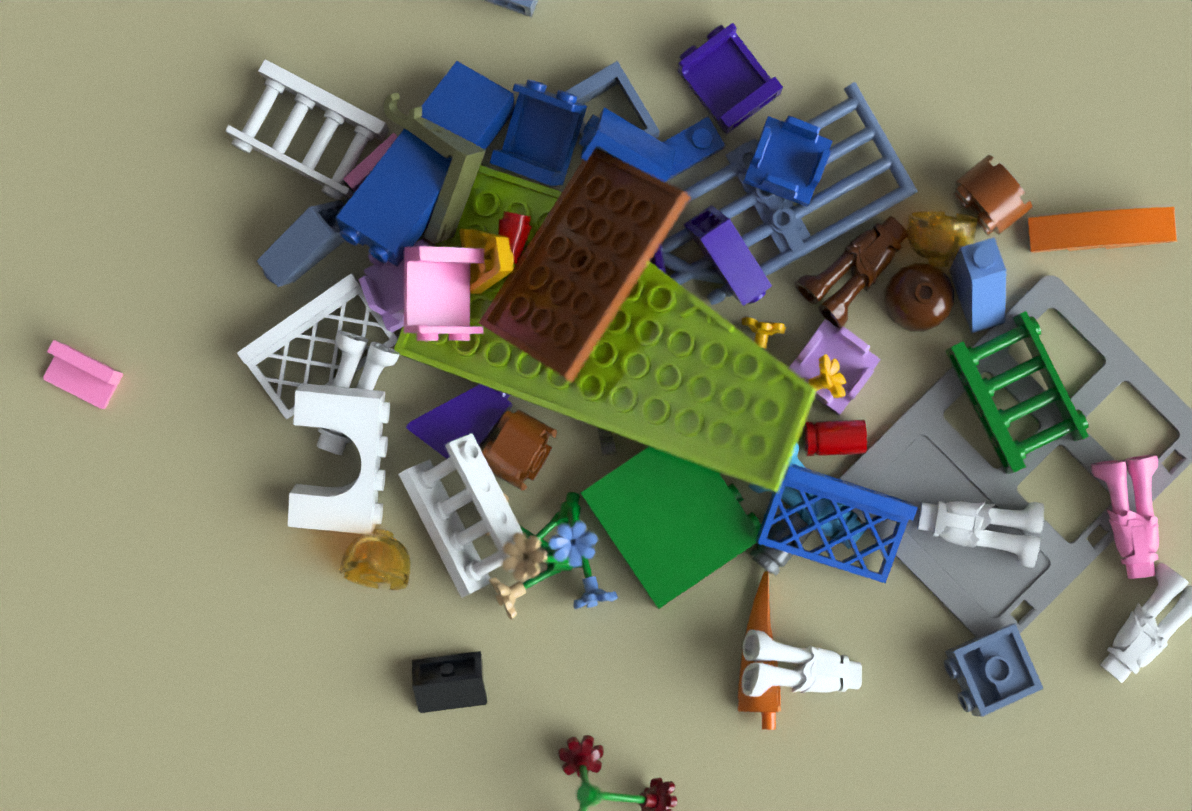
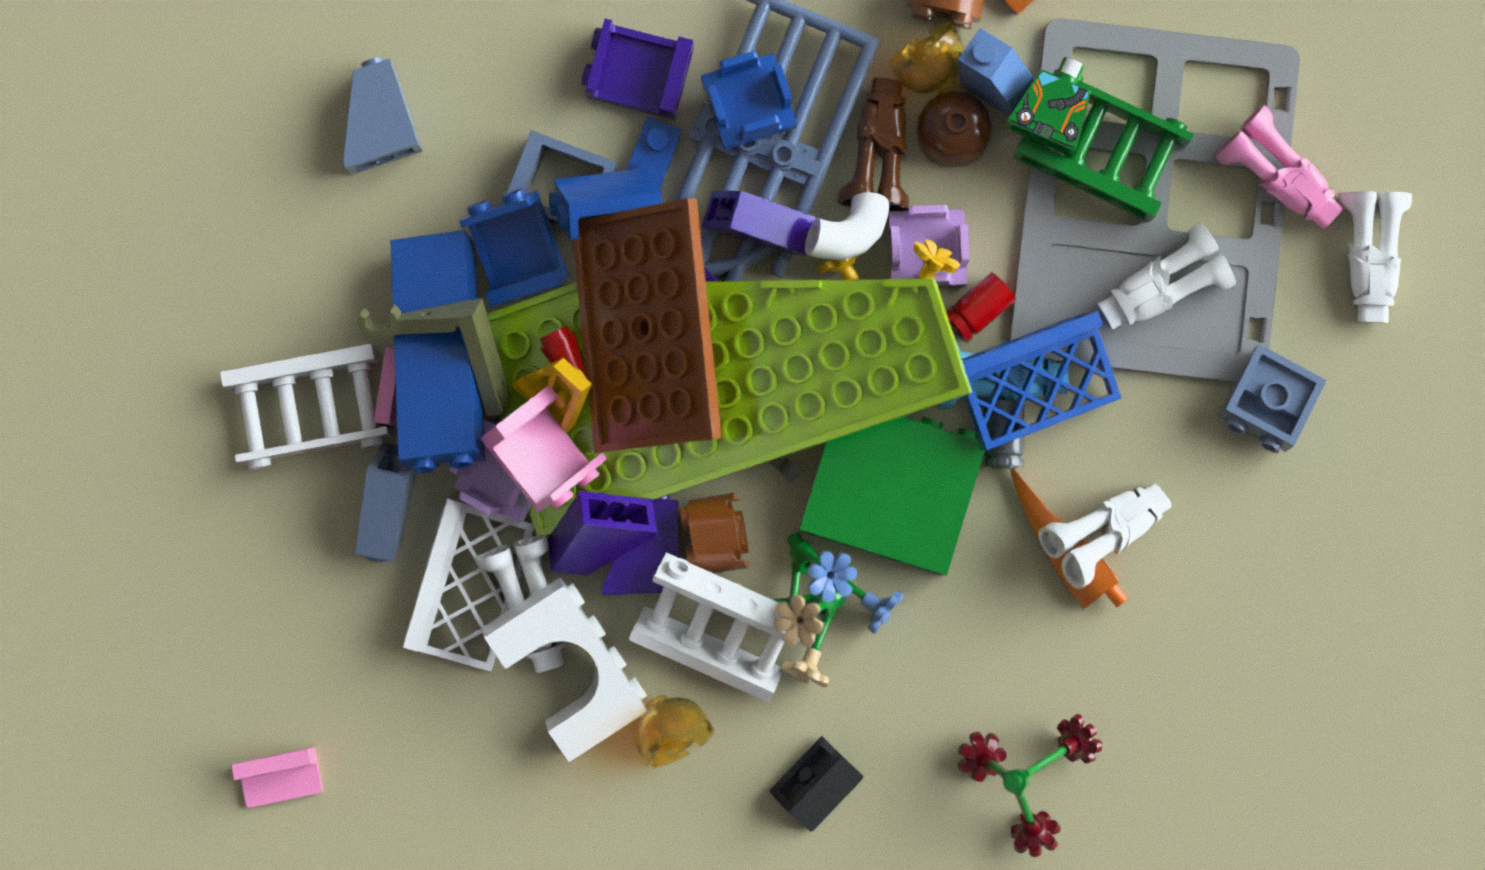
camera: 45 degrees left, 0 degrees up
(438, 381) = (598, 531): none -> dark purple slope
(783, 313) = (852, 235): none -> white cylinder
(1001, 337) = (1053, 108): none -> green torso

